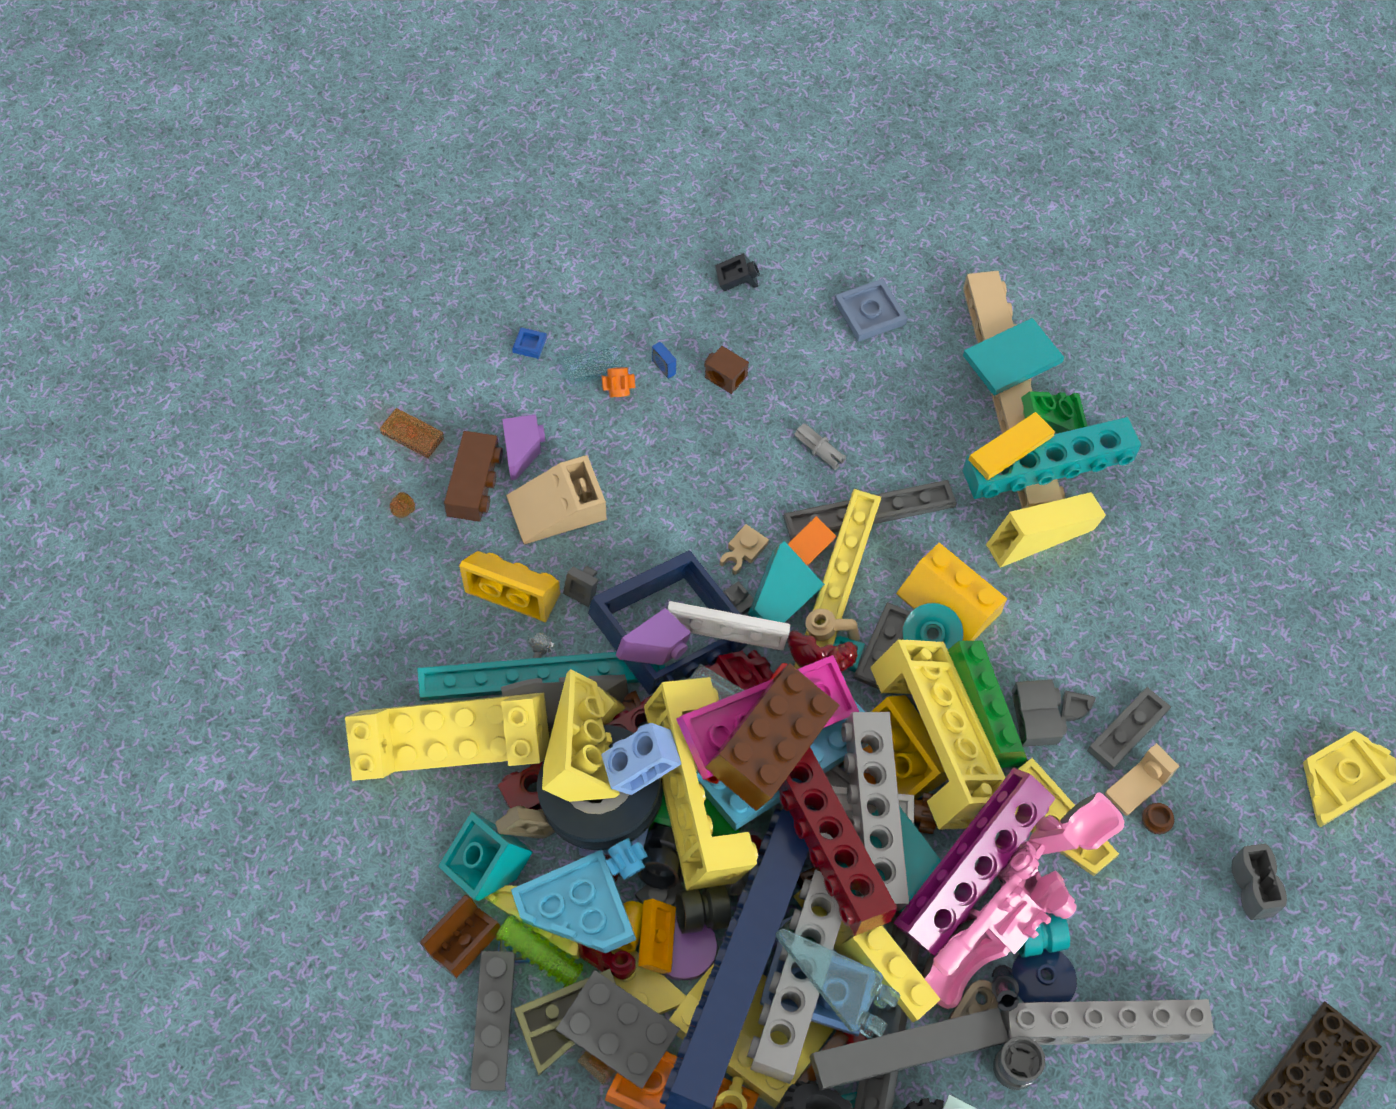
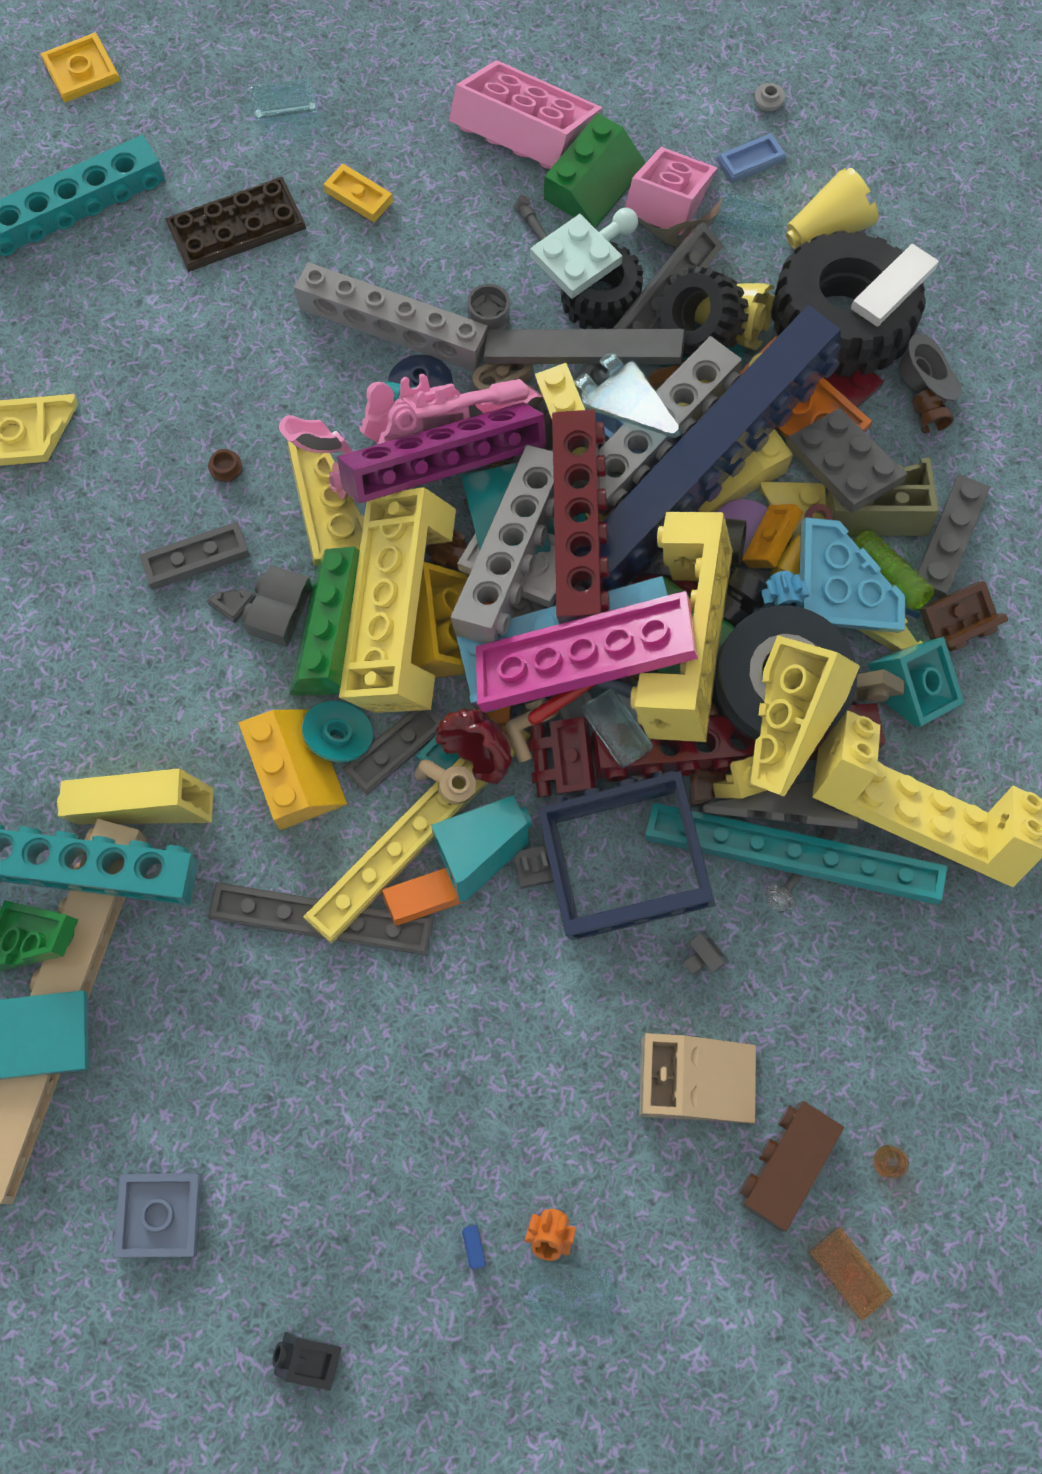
camera: 155 degrees left, 10 degrees up
(510, 585) = (794, 983): yellow slope -> none
(522, 442) = (712, 1191): medium lavender slope -> none
(529, 343) = (642, 1366): blue tile -> none
(641, 758) = (745, 648): light blue brick -> none
(655, 640) = (662, 807): medium lavender slope -> none
(726, 369) = (399, 1196): reddish brown brick -> none
(731, 626) = (572, 804): white tile -> none
(745, 545) = (489, 932): tan plate -> none
(772, 737) = (600, 604): reddish brown brick -> none
(819, 446) = (335, 1028): light grey axle -> none
(1005, 988) = (468, 366): black pin -> none
(1011, 446) = (122, 882): yellow tile -> none
(1142, 780) = (219, 502): tan bracket -> none
(1262, 889) = (175, 366): dark grey brick -> none

